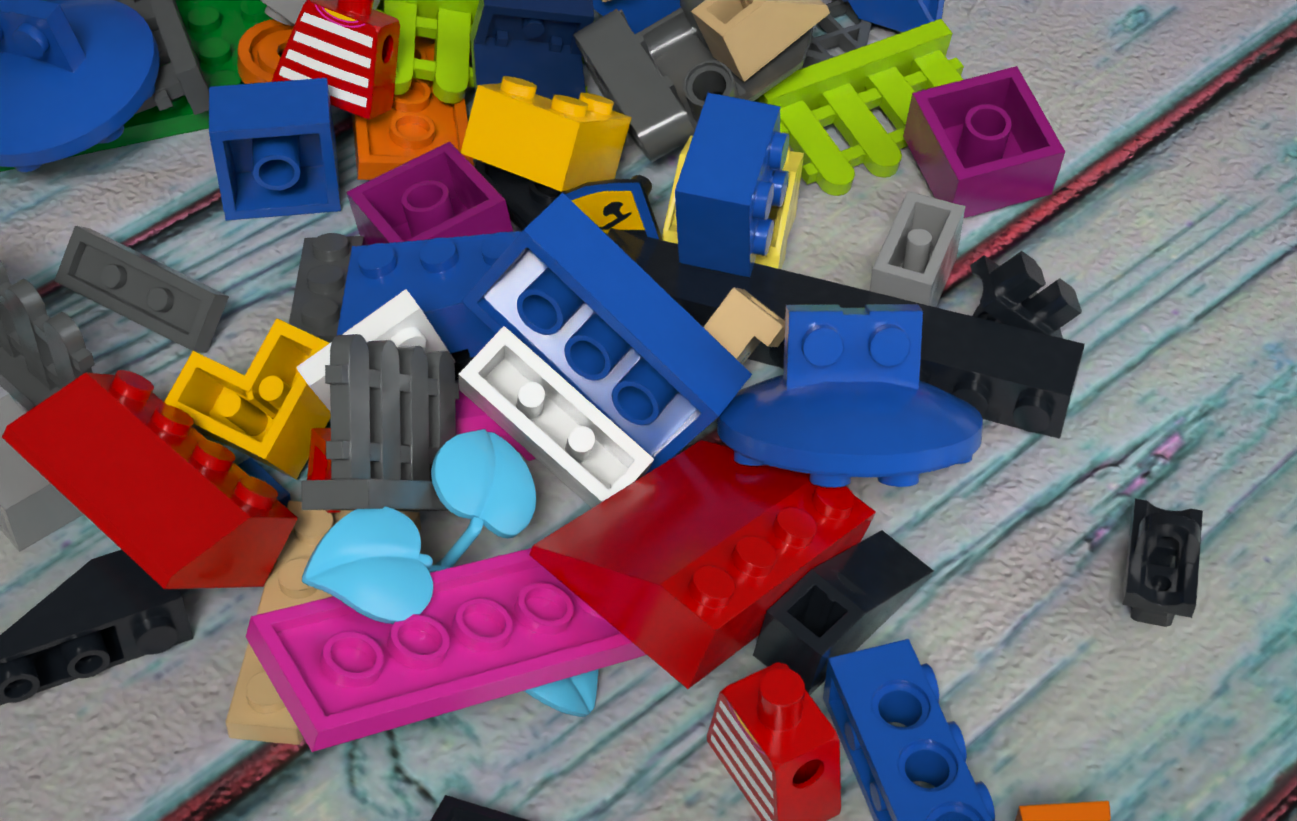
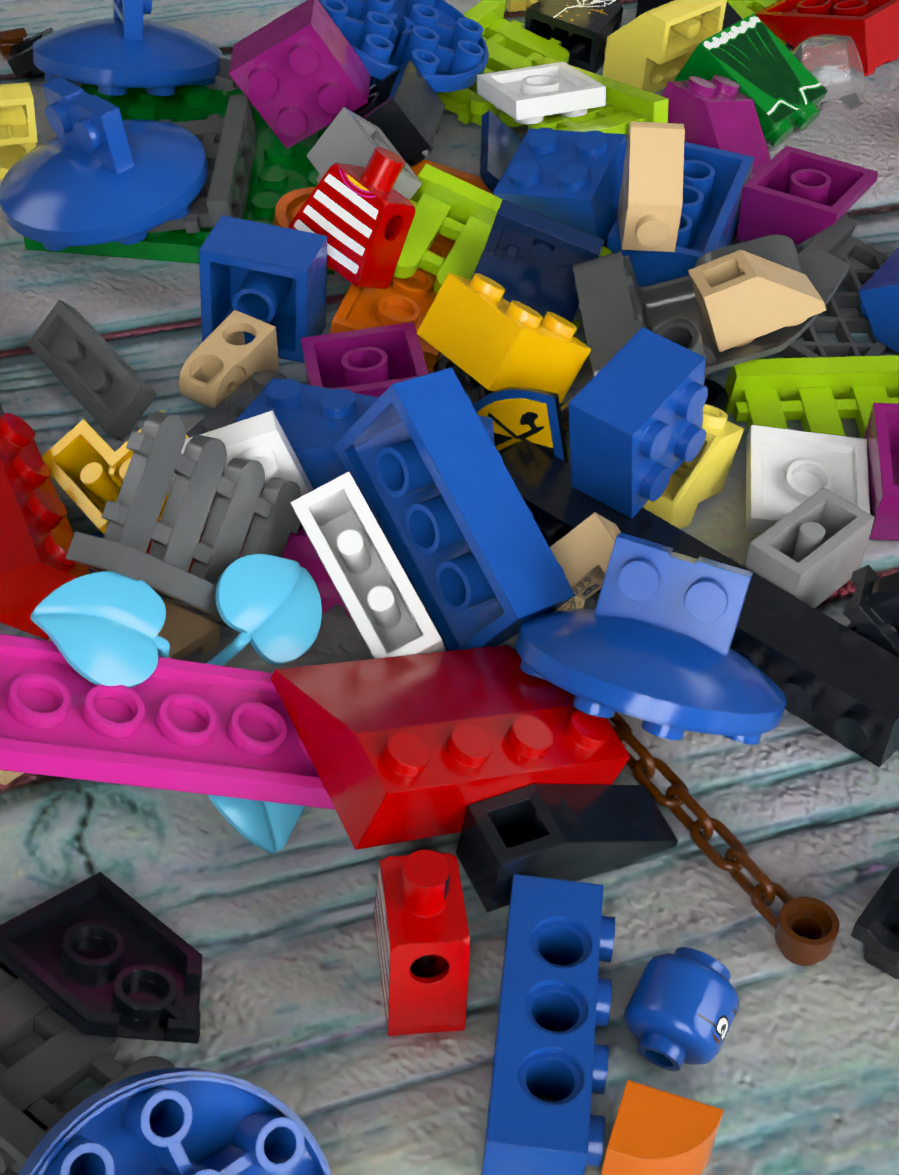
camera: 20 degrees right, 5 degrees down
(273, 240) = (226, 361): none -> tan leg
(866, 182) = (793, 465): none -> white plate
(1020, 723) = (682, 1009): none -> blue head
(1072, 601) = (797, 917): none -> reddish brown piece

